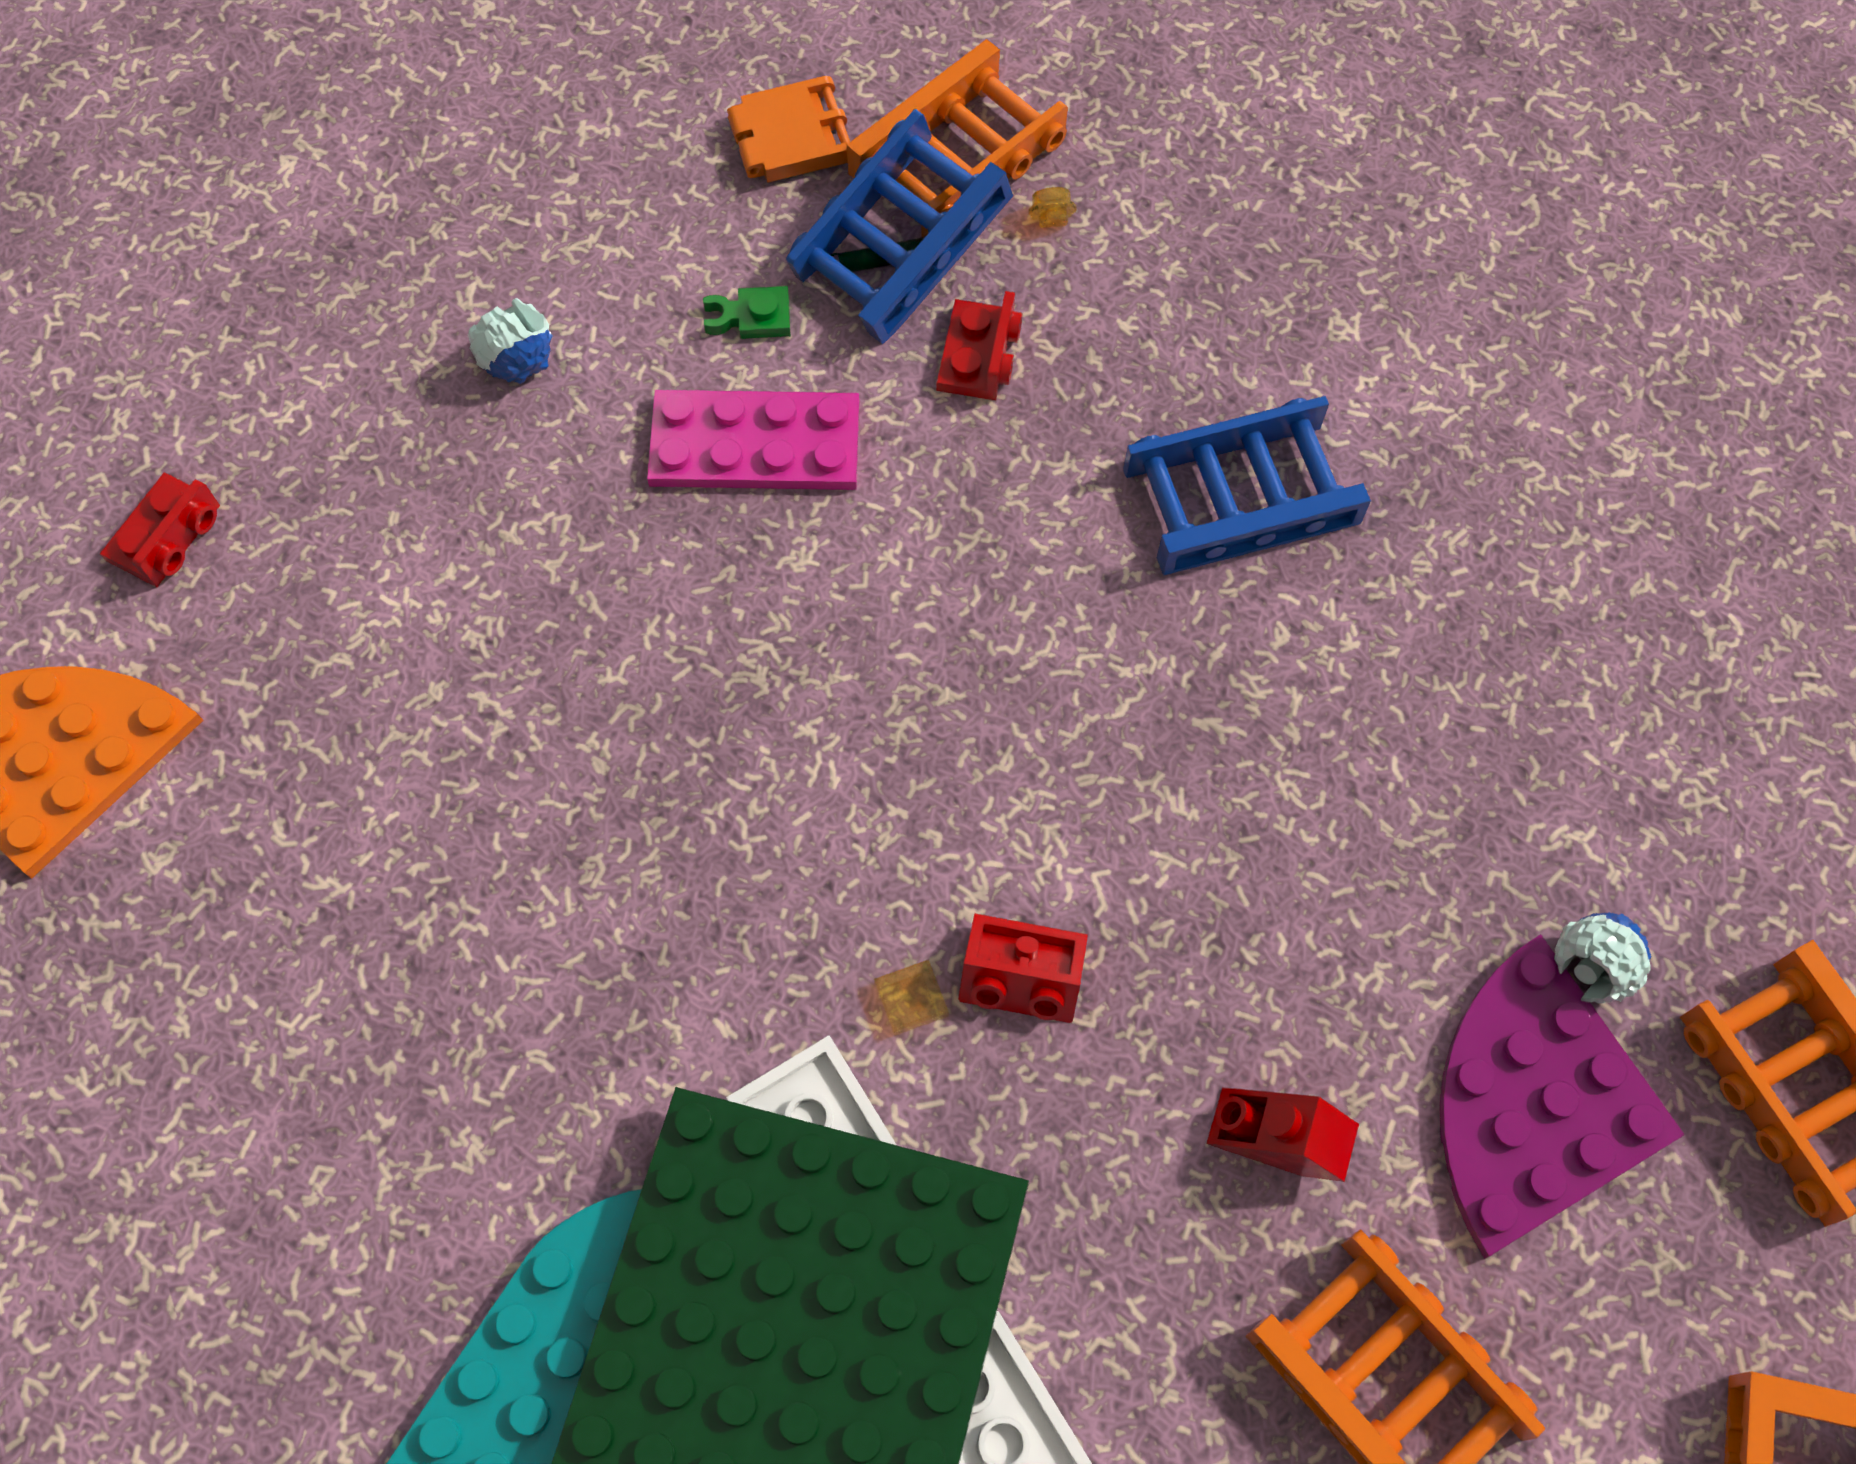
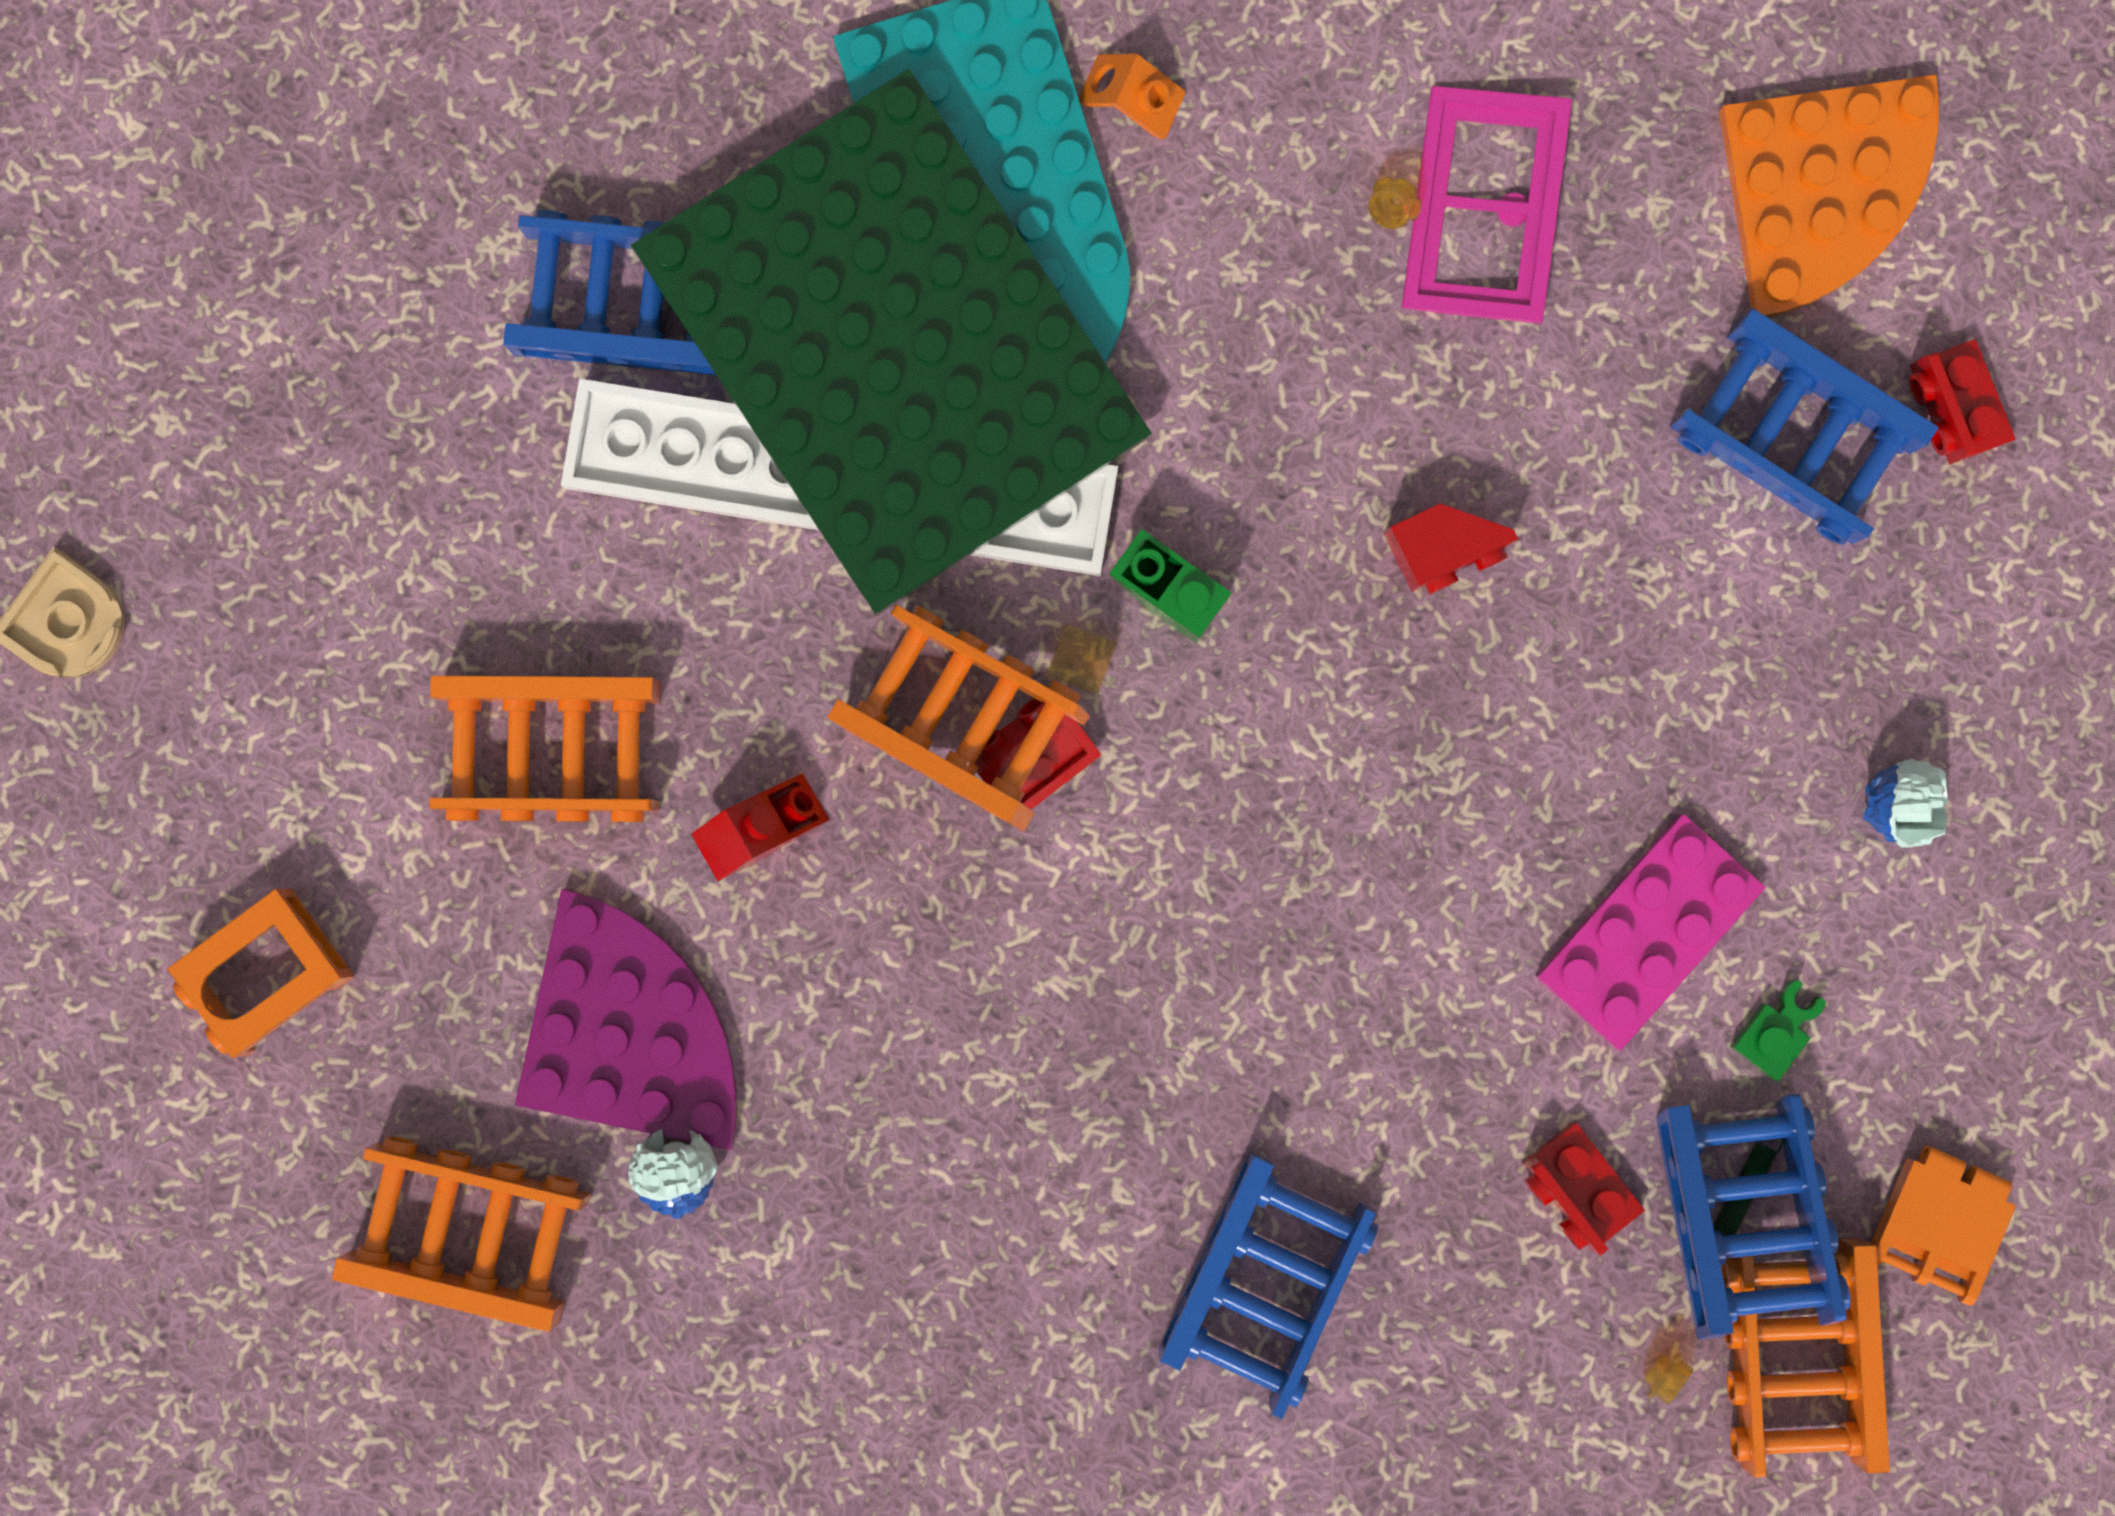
camera: 130 degrees right, 20 degrees up
(135, 995) = (1539, 212): none -> dark pink door
(220, 596) = (1850, 402): none -> blue fence
(318, 1056) = (1388, 213): none -> clear yellow plate
(367, 1371) = (1136, 91): none -> orange bracket
(579, 795) = (1444, 541): none -> red slope
(792, 964) = (1169, 586): none -> green slope
(1104, 1060) = (958, 768): none -> orange fence

